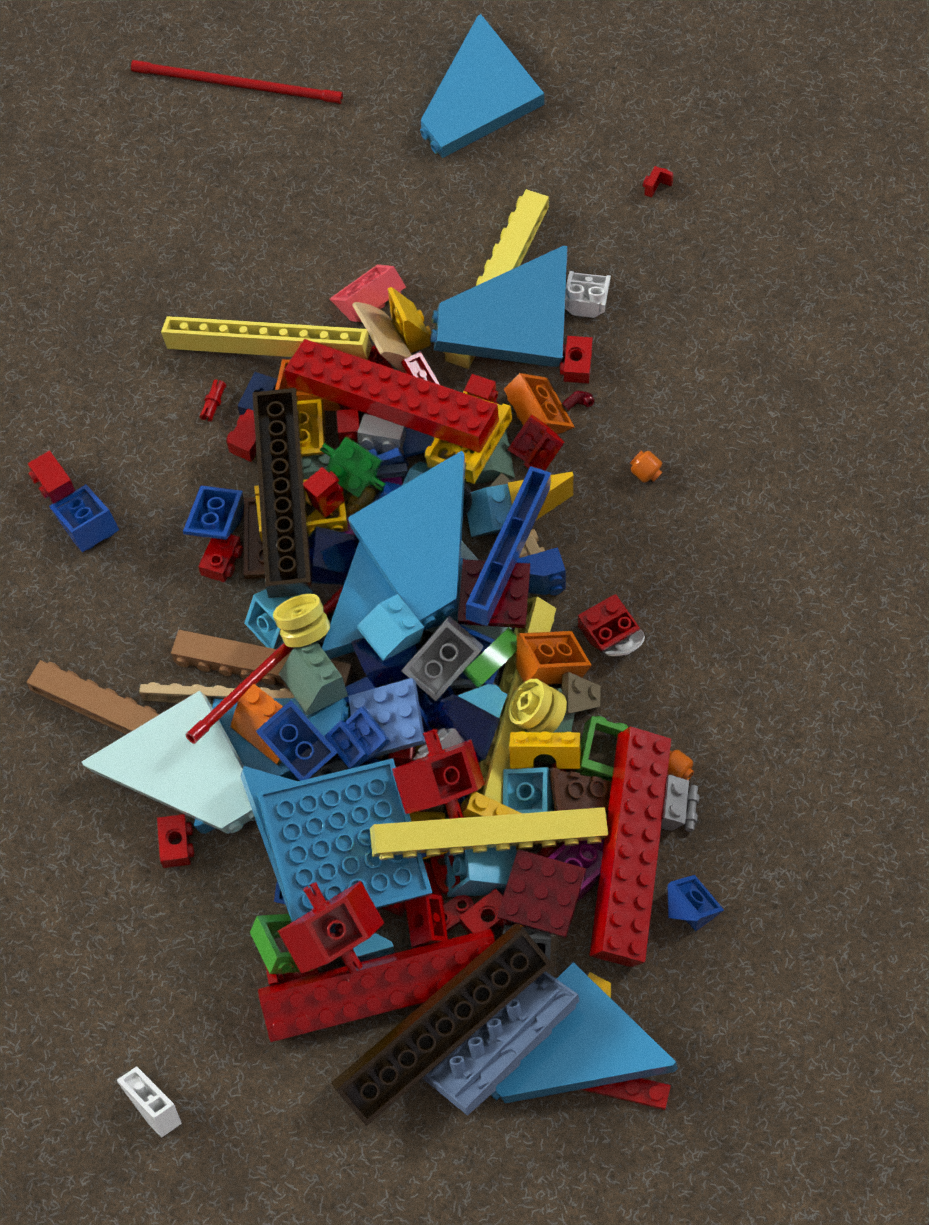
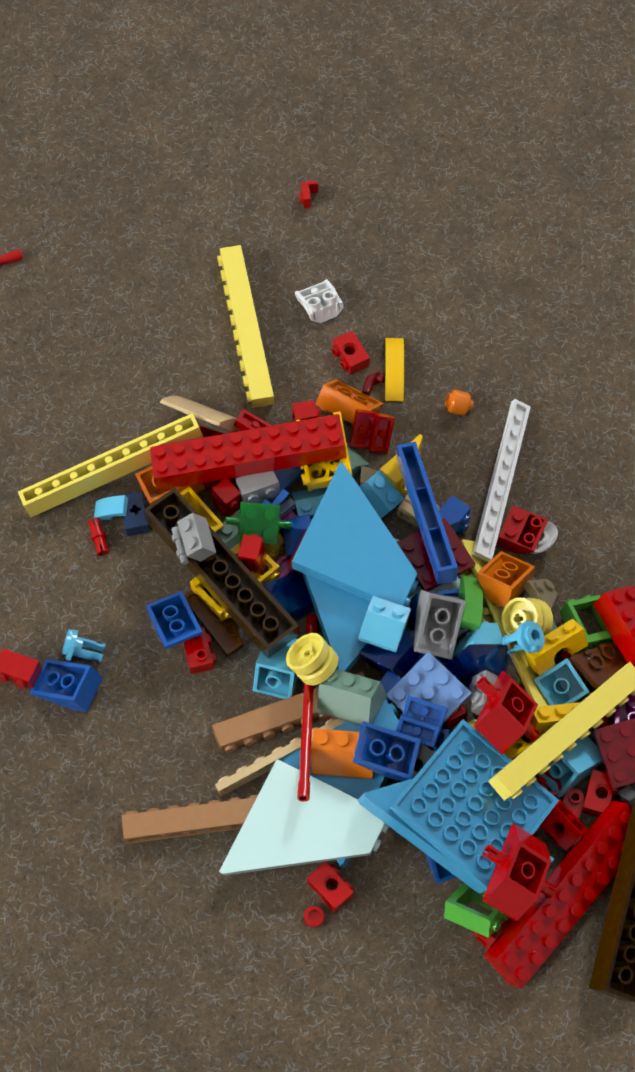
camera: 40 degrees left, 0 degrees up
(114, 485) = (74, 644): none -> medium azure piece
(142, 858) = (314, 916): none -> red tile
(241, 379) = (111, 506): none -> medium azure slope
(242, 440) = (150, 547): red brick -> none
(272, 443) = (193, 539): none -> light grey brick
(368, 289) = (156, 382): coral slope -> none
(408, 321) = (207, 393): yellow slope -> none
(478, 93) = (126, 195): dark azure slope -> none
(506, 721) = (528, 638): none -> medium azure piece
(509, 315) = (282, 346): dark azure slope -> none
(608, 398) = (394, 369): none -> yellow slope
(626, 564) = (501, 481): none -> white plate

